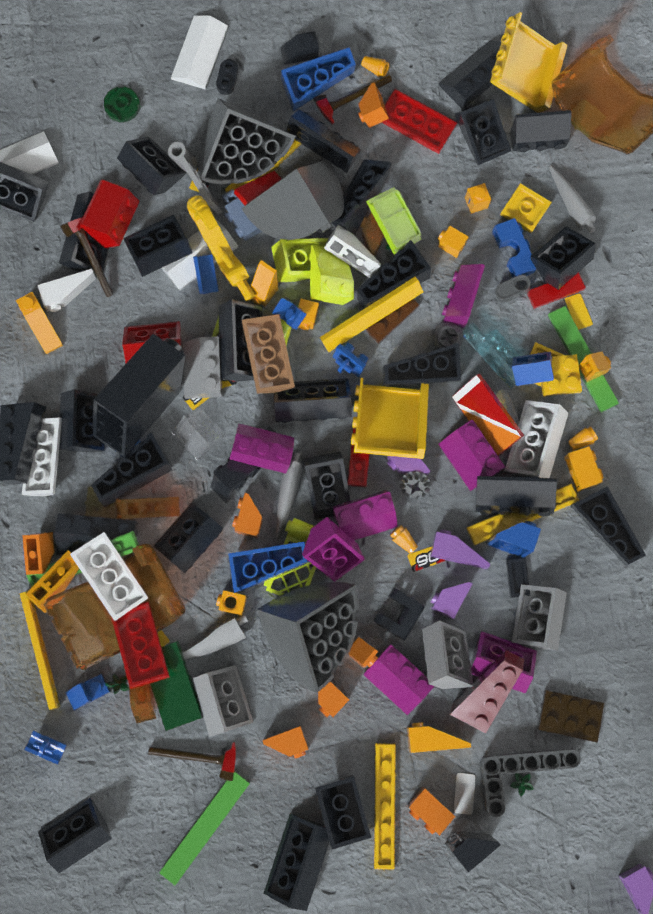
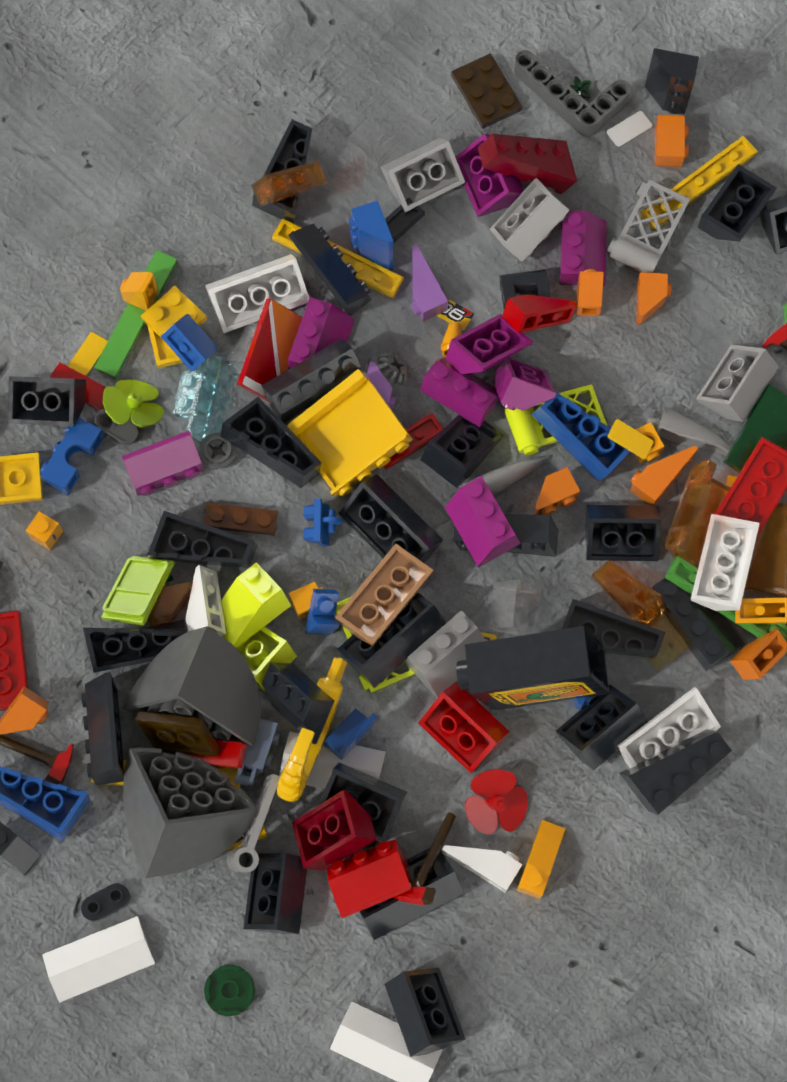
camera: 125 degrees left, 5 degrees down
(92, 329) = (501, 796): none -> red piece
(152, 212) = (332, 831): none -> dark red slope
(203, 589) = (659, 476): none -> orange slope
(239, 589) = (630, 439): none -> yellow sticker
(245, 252) = (297, 697): none -> black slope
(264, 284) = (315, 658): light orange slope -> none
(275, 177) = (178, 733): none -> dark brown plate
(288, 742) = (721, 299): orange slope -> none
(312, 630) = (608, 350): dark grey brick -> none
(370, 711) = (632, 250): none -> light grey piece
(371, 314) = (257, 534): yellow tile -> none
(377, 550) = (485, 346): none -> magenta slope
(377, 603) = (537, 312): none -> red slope
(426, 738) = (611, 185): light orange slope -> none
(447, 422) = (310, 380): none -> black slope
(450, 599) = (472, 258): medium lavender slope -> none
(452, 241) = (112, 520): light orange brick -> none
(525, 307) = (126, 402): none -> lime piece
(583, 438) = (219, 256): light orange cone -> none
(584, 469) = (249, 234): light orange brick -> none
(596, 513) = (288, 183): none -> clear orange slope

